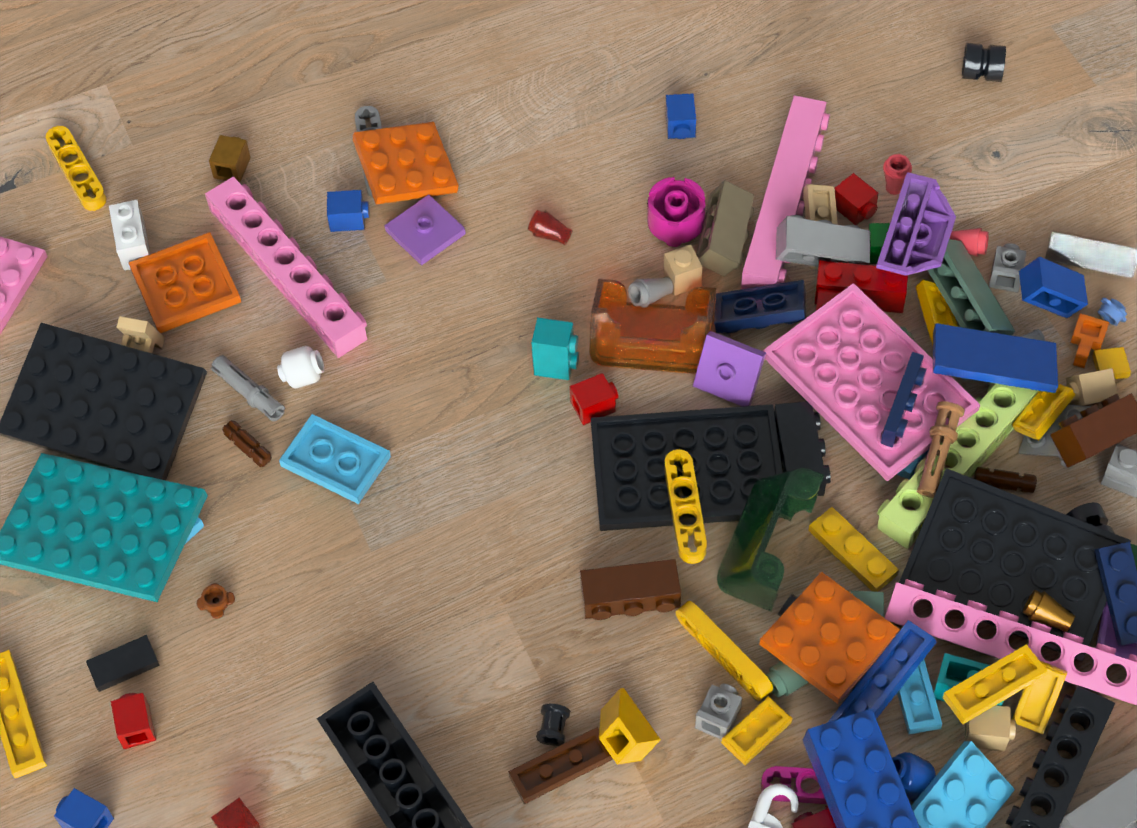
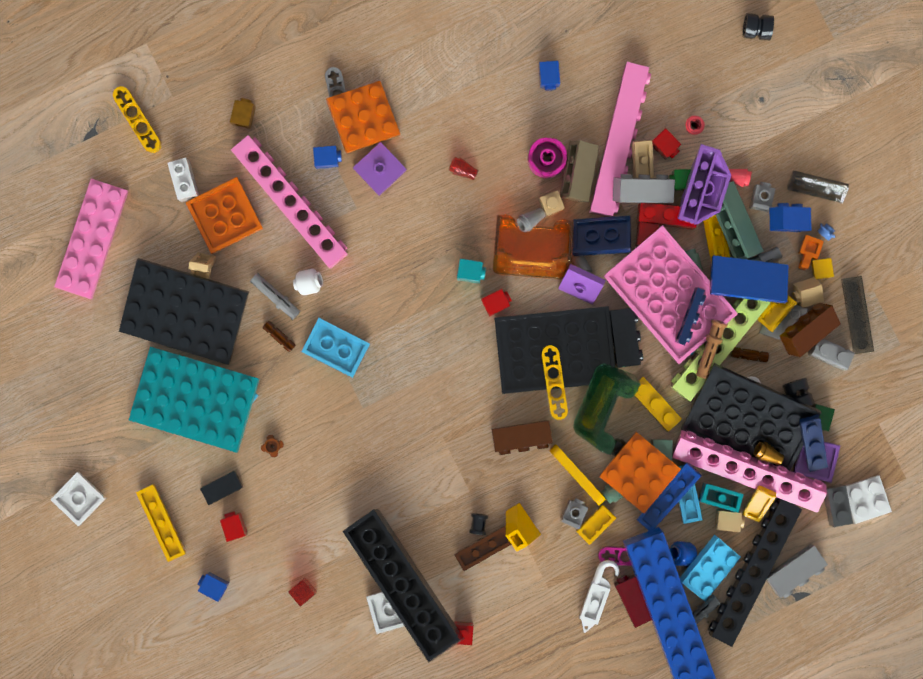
camera: 10 degrees left, 30 degrees up
(994, 684) = (734, 506): yellow plate -> none

